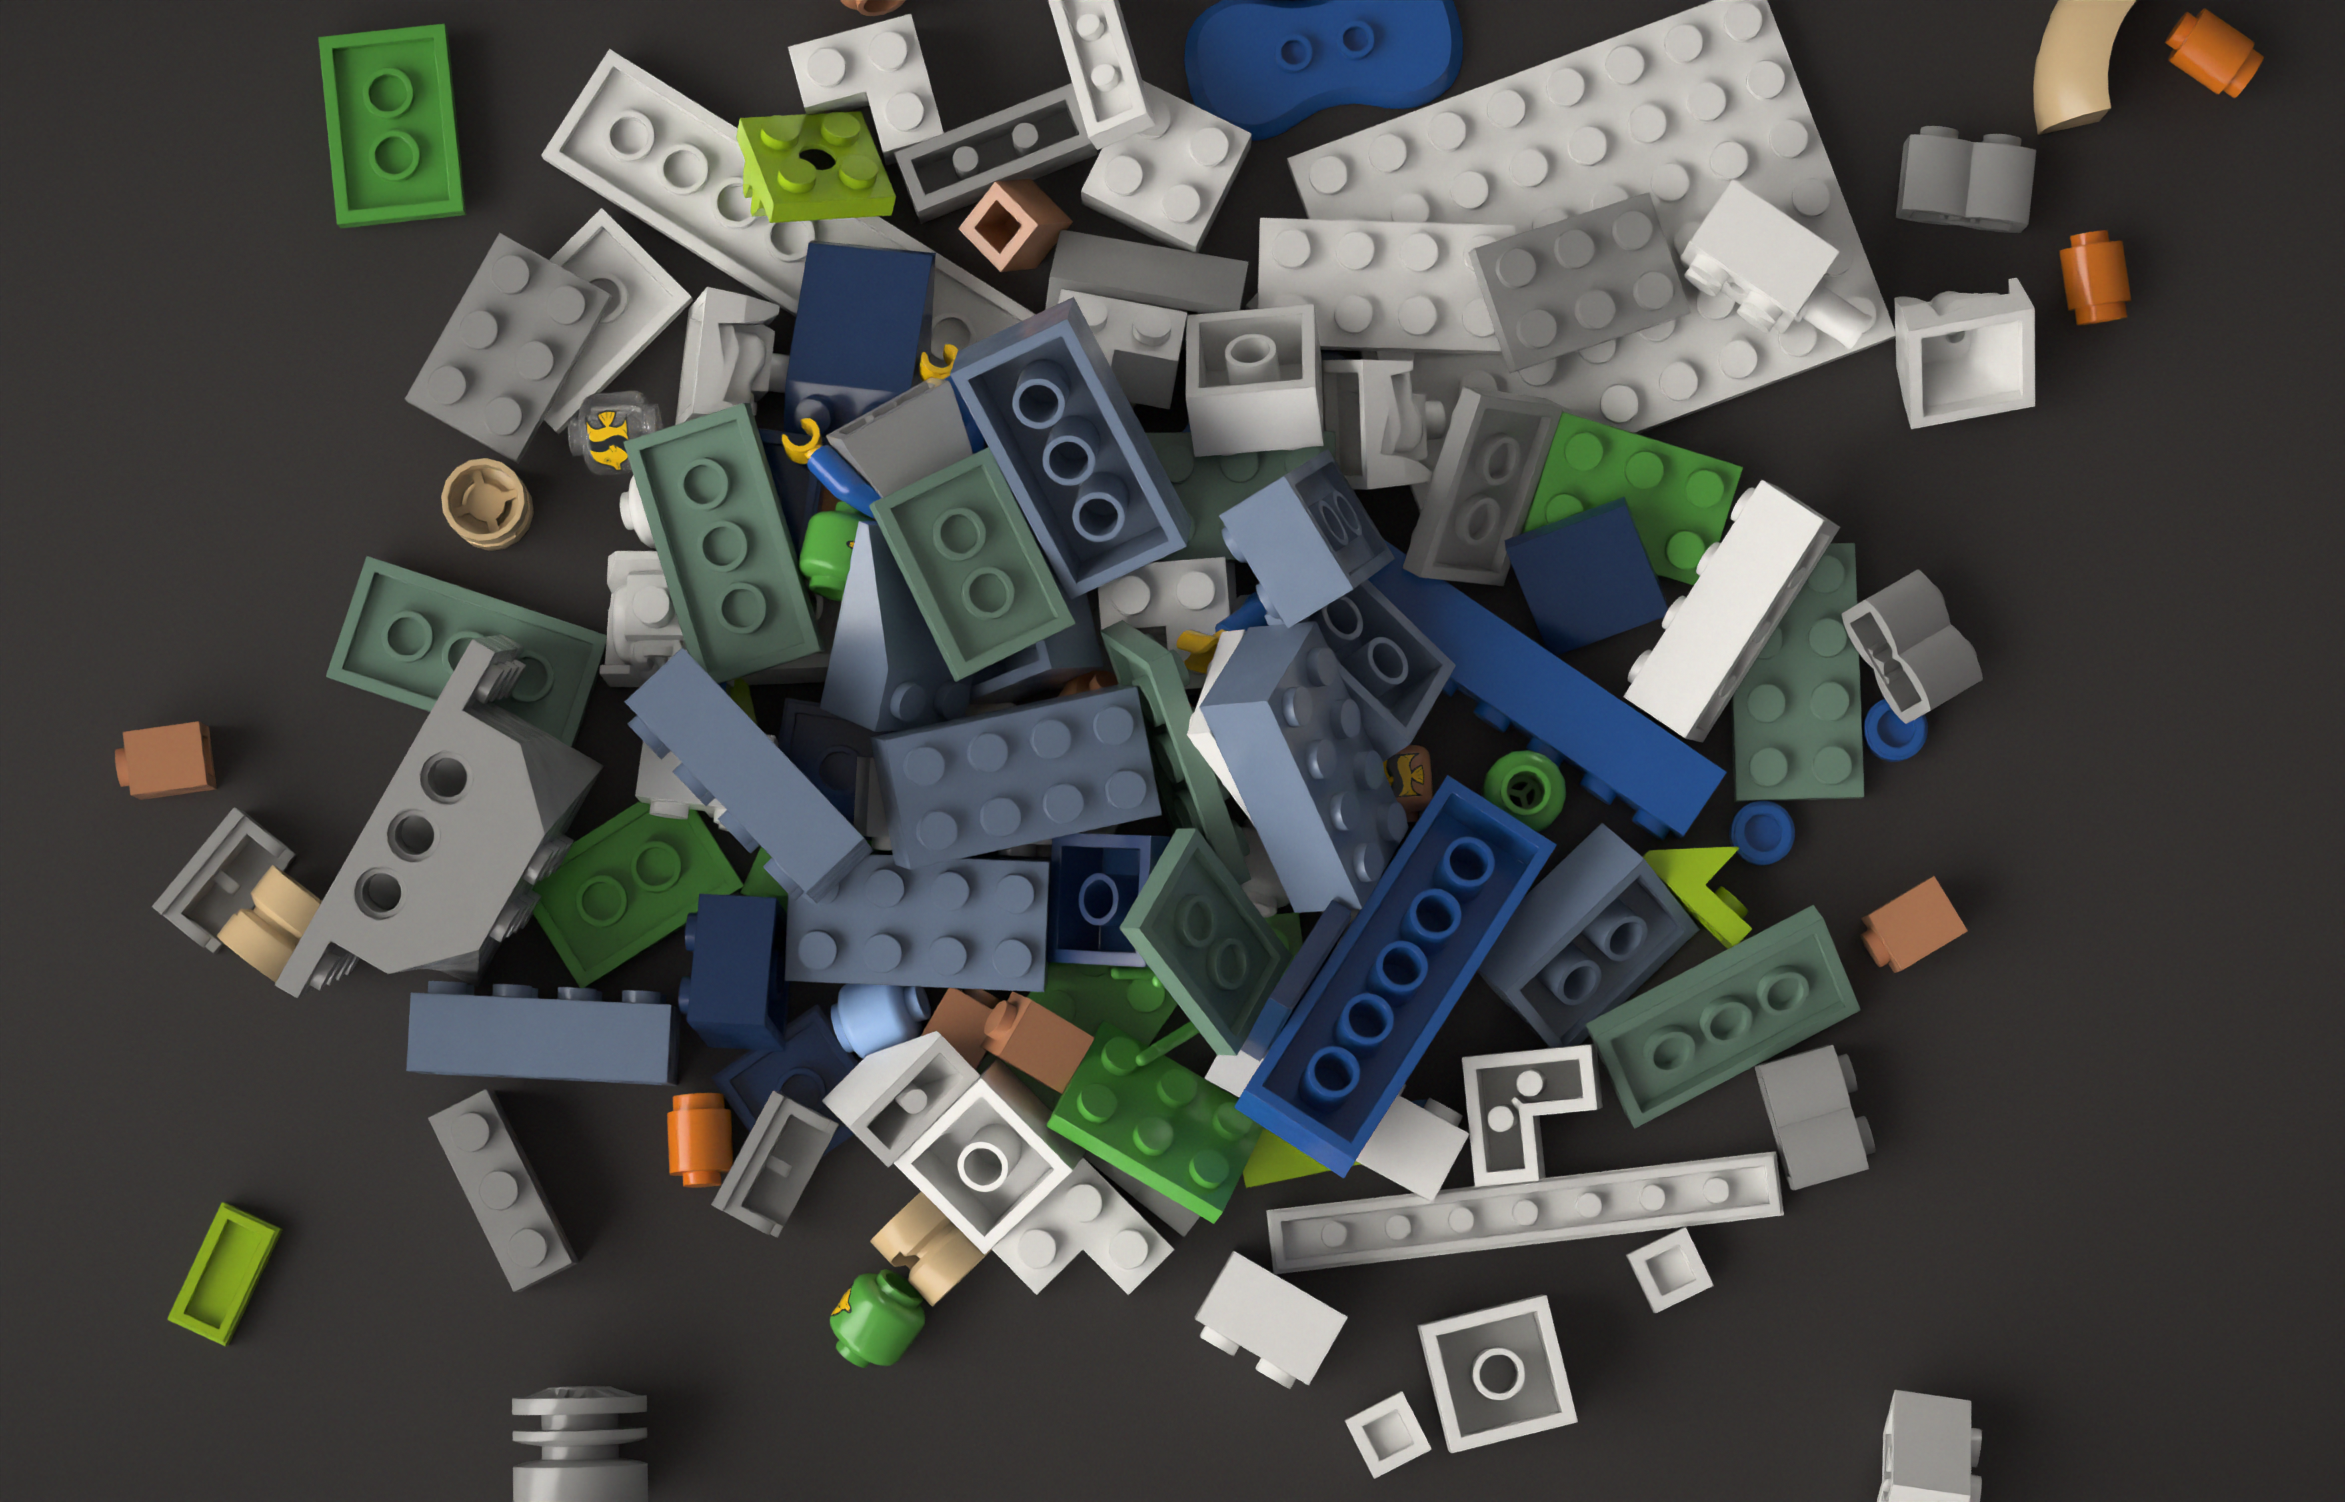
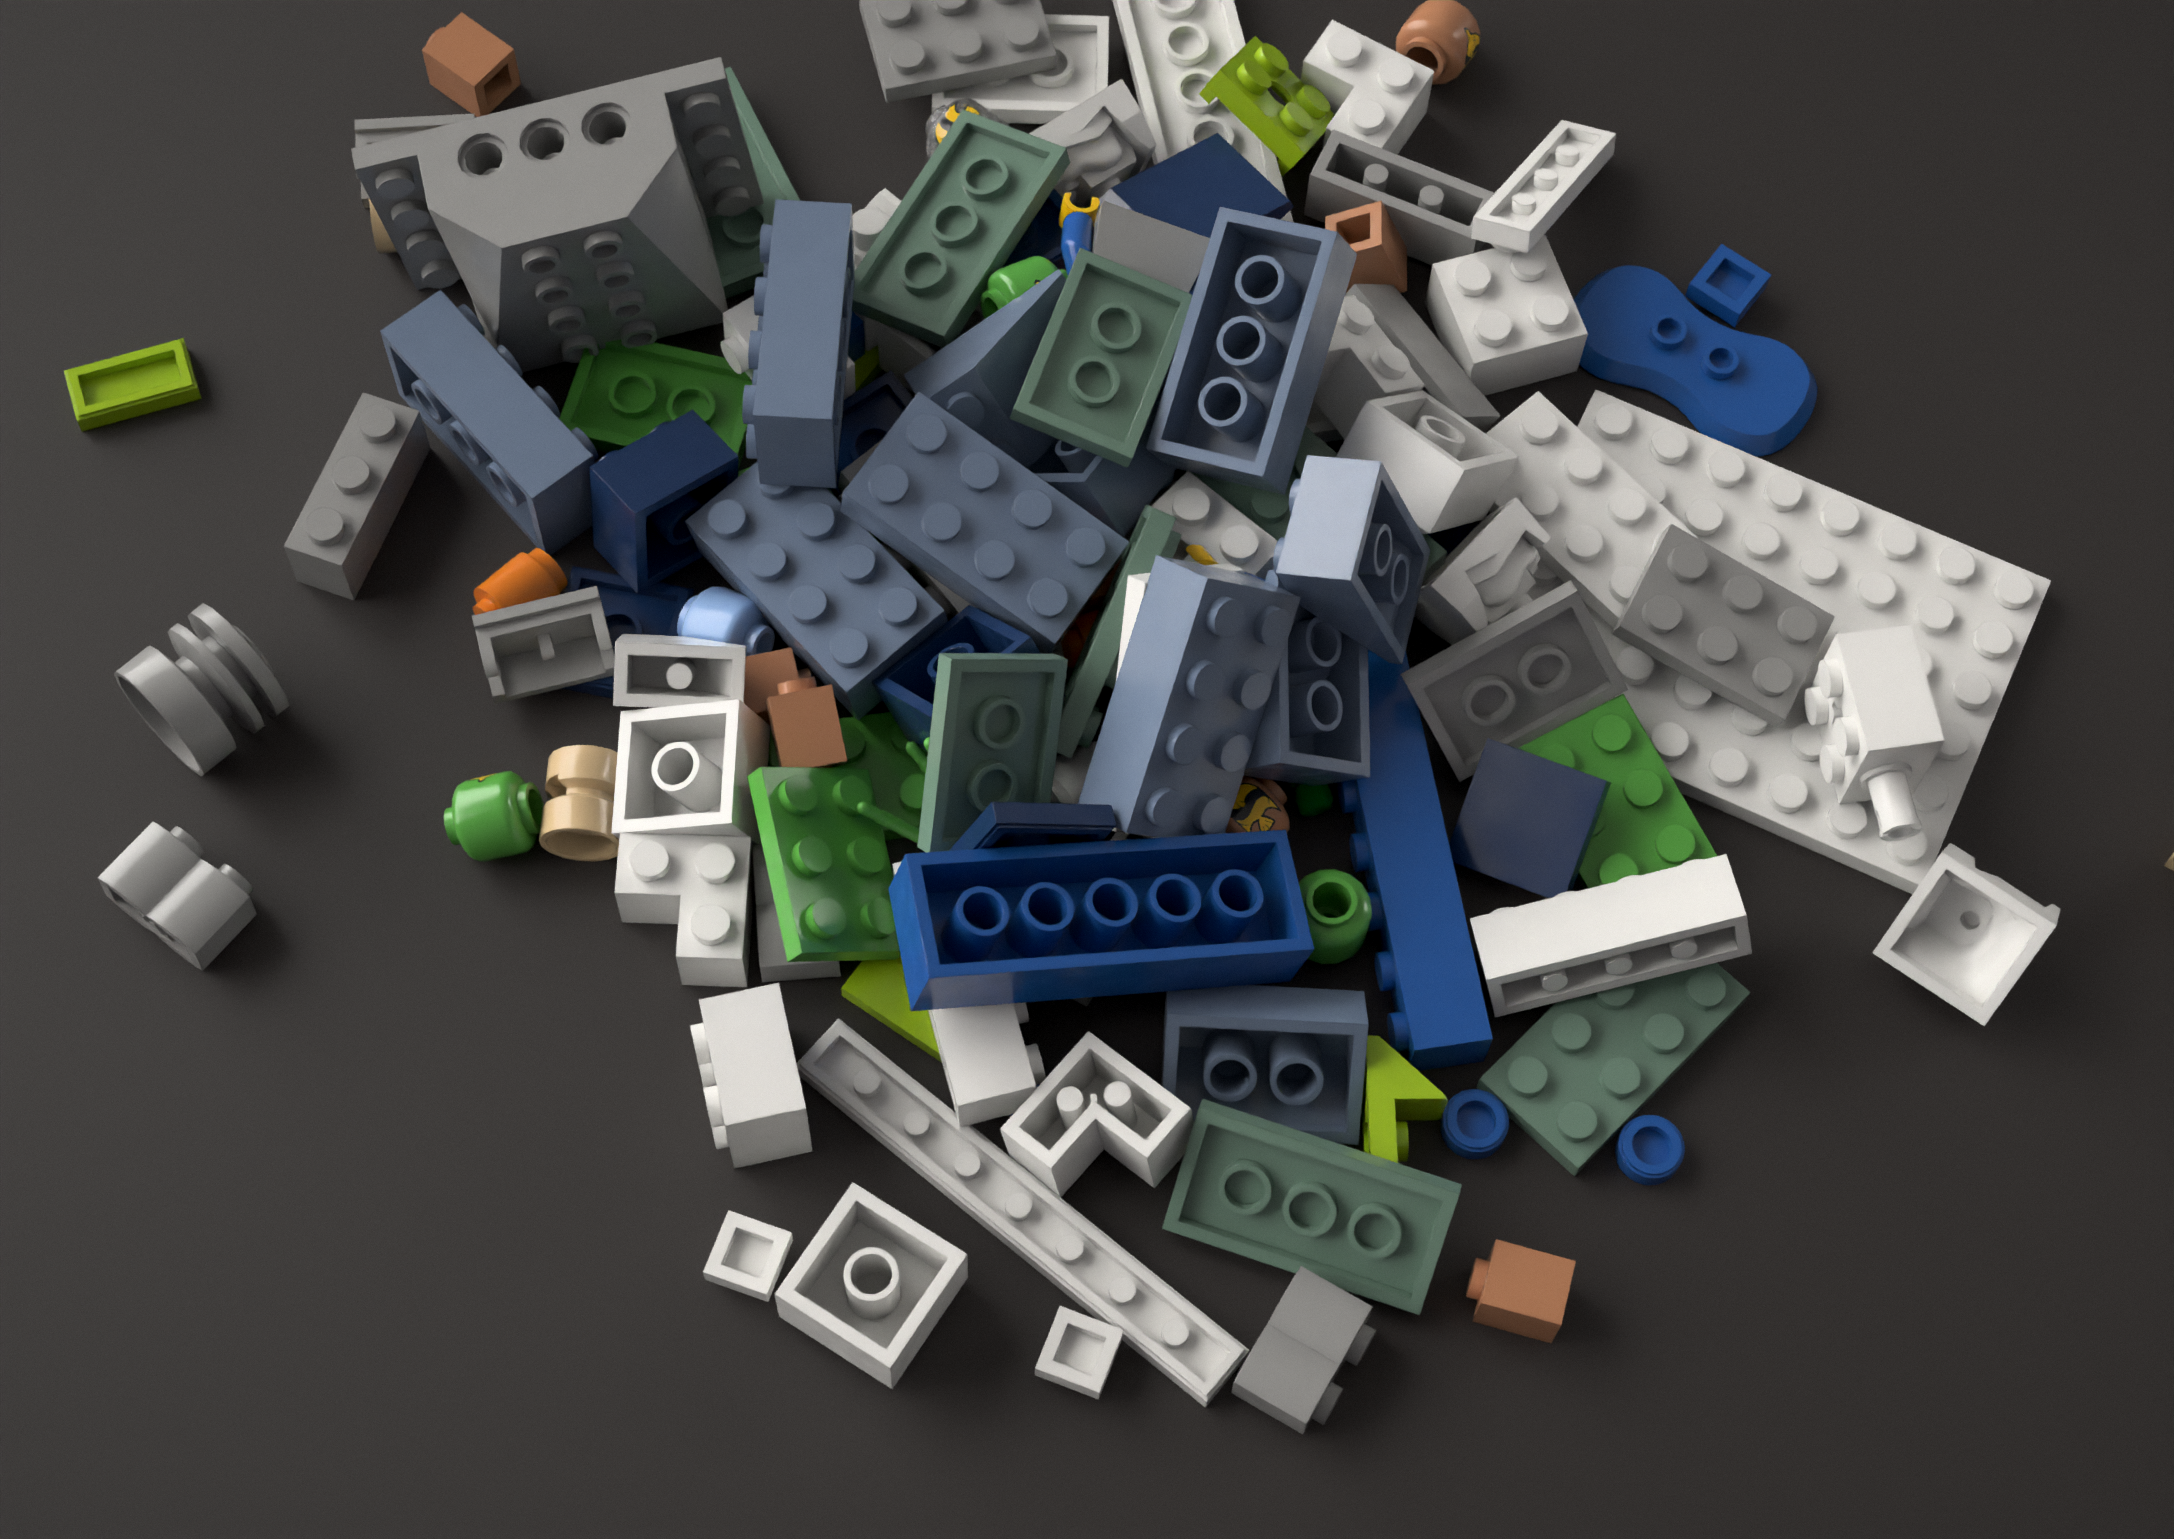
camera: 45 degrees right, 20 degrees down
(487, 504) = (839, 104): tan wheel -> none
(1912, 646) = (1723, 1094): light grey brick -> none
(1966, 181) = (2079, 834): light grey brick -> none
(2095, 278) = (2117, 987): orange brick -> none

